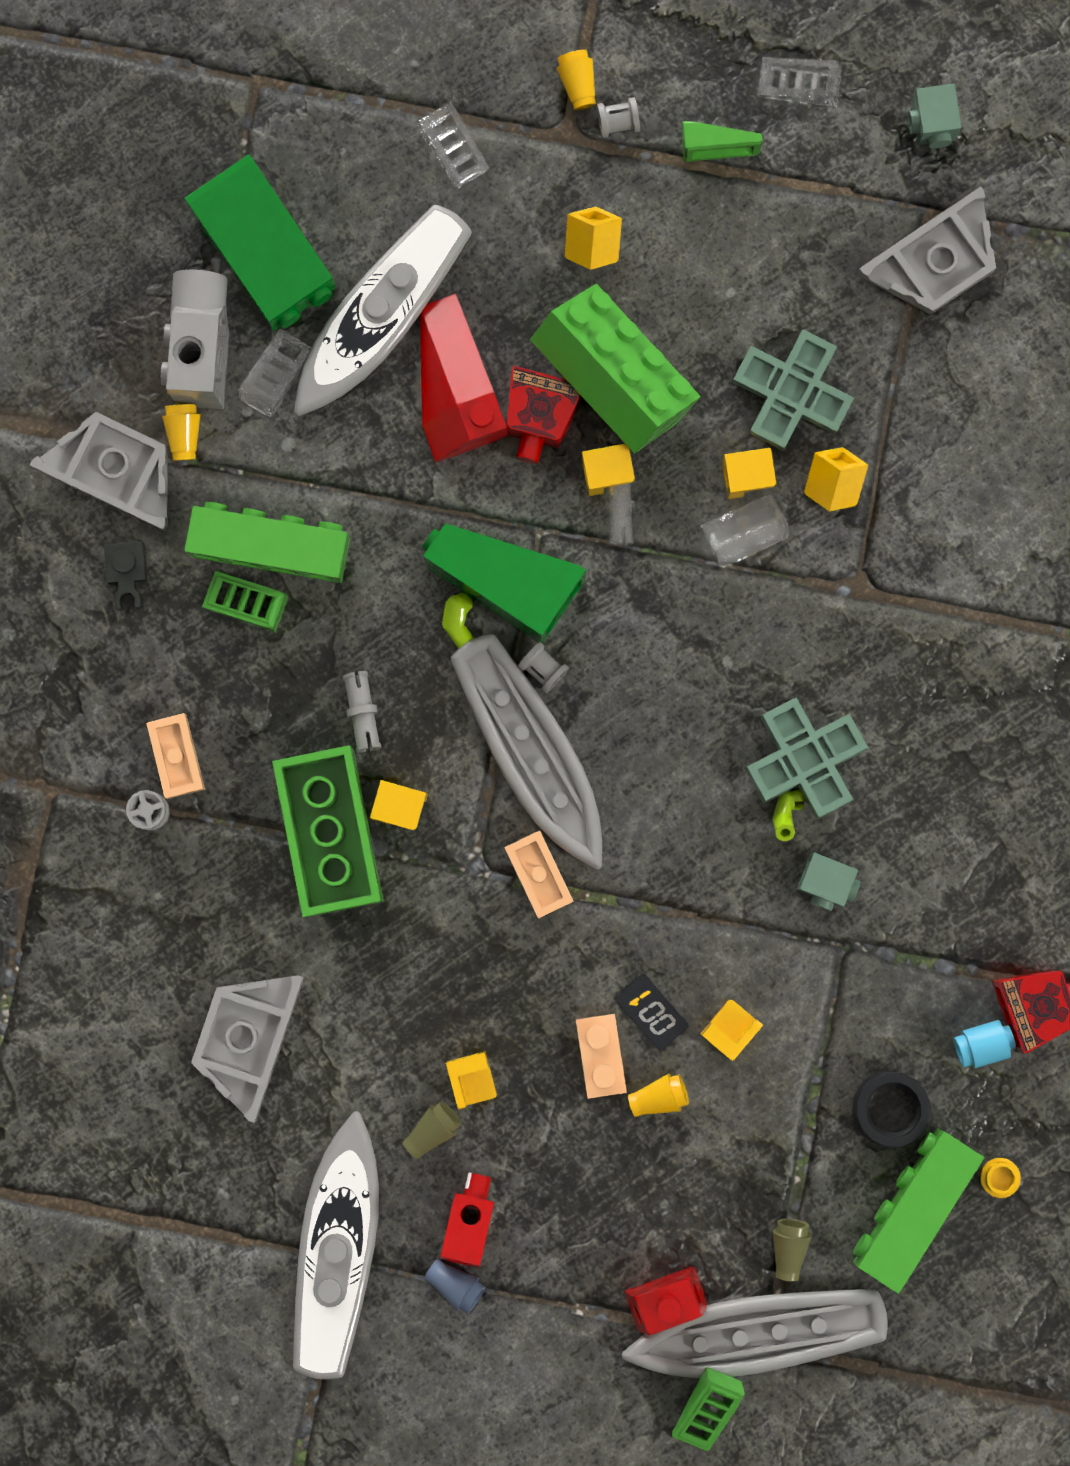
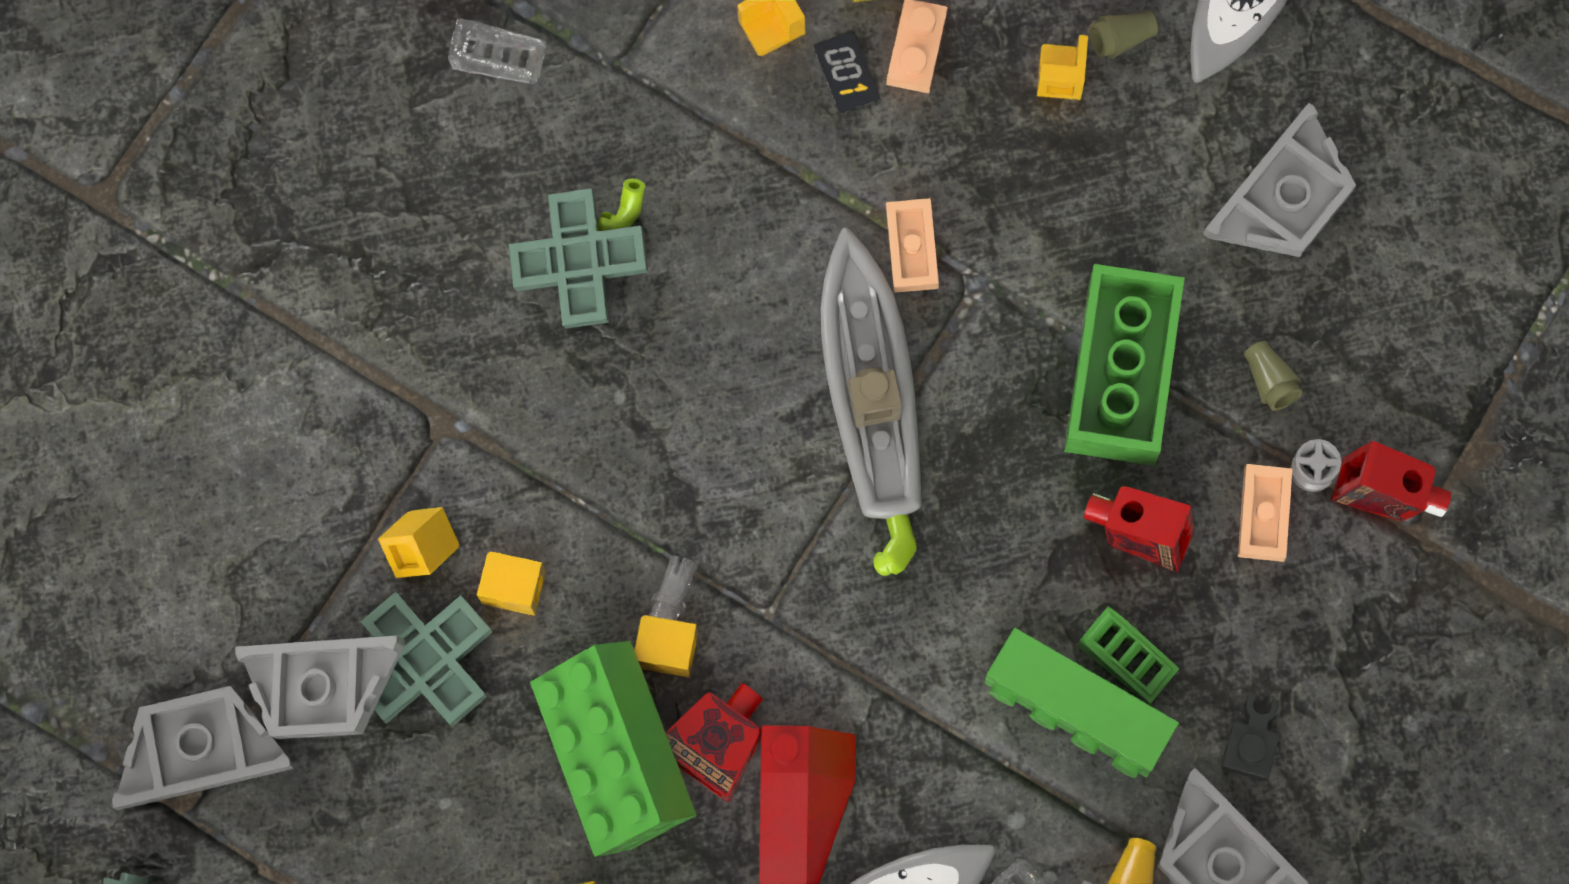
camera: 160 degrees left, 10 degrees down
(82, 811) = (1389, 483): none -> red torso
(206, 872) = (1273, 377): none -> olive cone
(250, 703) = (1160, 530): none -> red torso
(362, 711) = (1040, 485): light grey pin -> none
(398, 805) = (1036, 368): yellow panel -> none
(507, 579) = (825, 556): green slope -> none
(519, 724) = (874, 397): none -> dark tan brick
(543, 667) = (822, 458): light grey bush -> none
(746, 530) = (541, 528): clear slope -> none
(828, 882) = (609, 127): sand green brick -> none
(863, 335) = (320, 684): none -> light grey wing
(983, 909) = (483, 34): none -> clear slope

